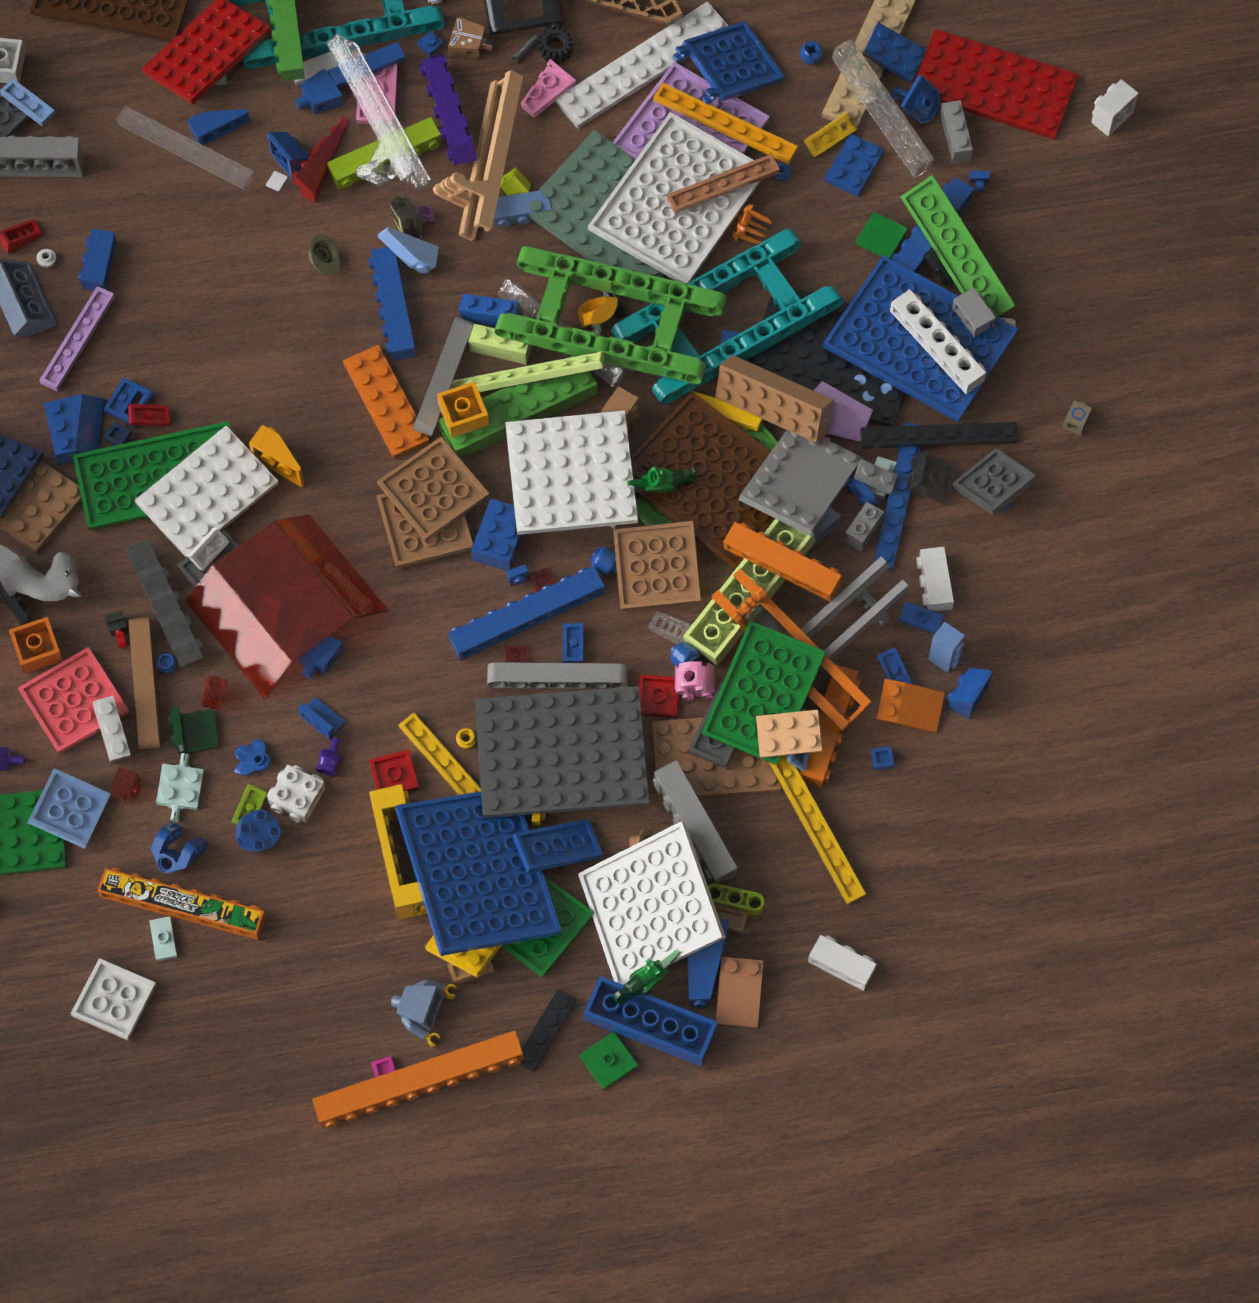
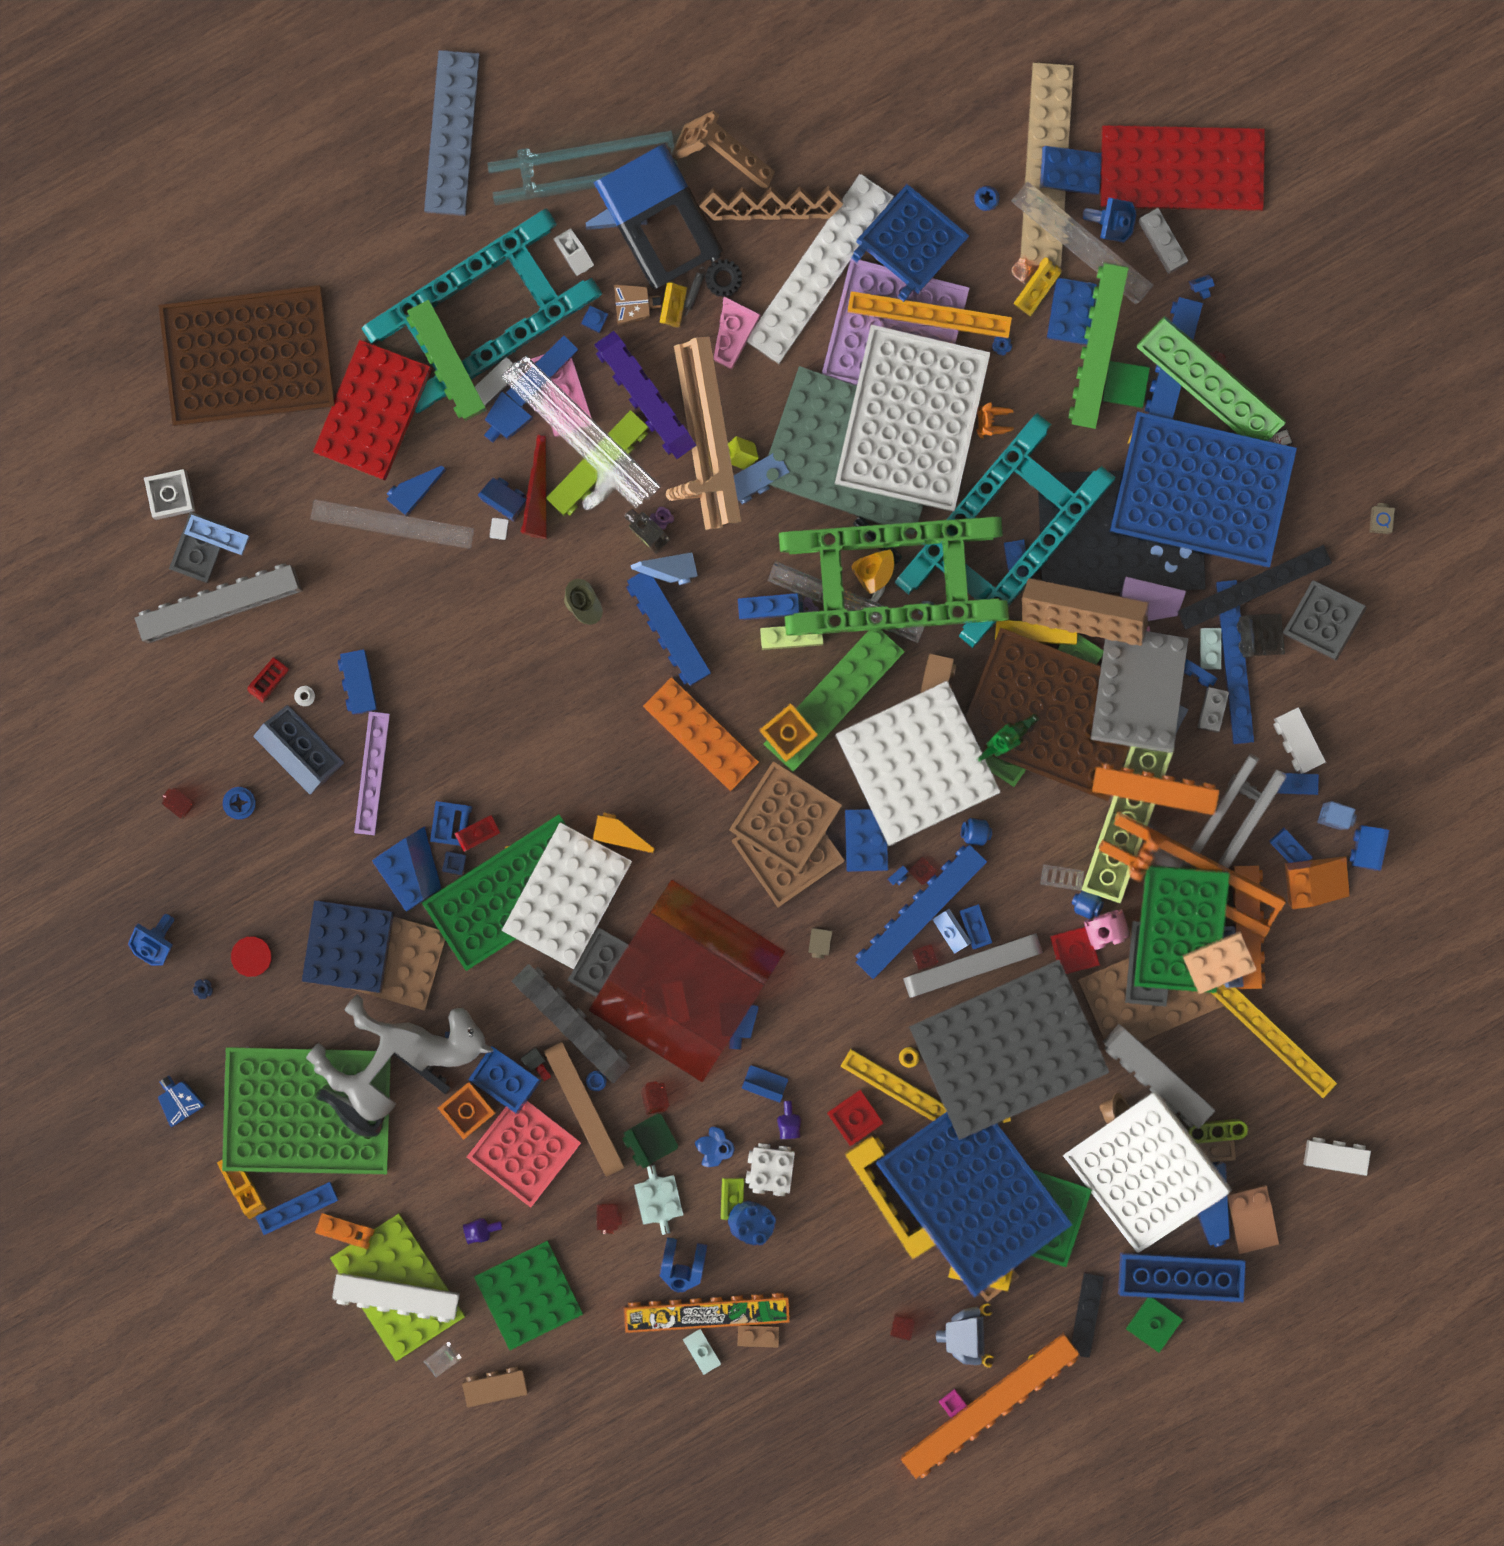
camera: 15 degrees left, 20 degrees up
(69, 808) = (565, 1260): light blue plate -> none
(82, 631) = (504, 1080): none -> blue plate
(111, 729) = (574, 1170): white brick -> none
(113, 999) = (680, 1425): white plate -> none
(208, 548) = (593, 956): white plate -> none
(222, 943) = (758, 1336): none -> medium nougat plate
(362, 978) = (902, 1327): none -> clear red brick
(422, 609) = (819, 943): none -> dark tan brick
(443, 375) = (749, 691): light grey beam -> none
(503, 51) = (673, 304): none -> yellow plate
(534, 372) = (834, 667): yellowish green tile -> none
(549, 639) = (951, 931): none -> light blue plate
(557, 845) = (1037, 1140): blue plate -> none
(645, 978) = (1167, 1245): animal -> none
(657, 565) = (1030, 822): medium nougat plate -> none
(722, 183) = (953, 390): nougat plate -> none
(821, 118) = (1017, 272): none -> clear orange plate
(867, 190) = (1099, 345): none -> bright green brick
(875, 476) = (1208, 655): light grey plate -> none
(882, 758) = (1307, 941): blue plate -> none
(937, 267) = (1192, 403): black axle -> none
(965, 379) = (1212, 493): white brick -> none
(974, 312) = (1249, 448): light grey hinge -> none
(1114, 107) = (1314, 162): white brick -> none

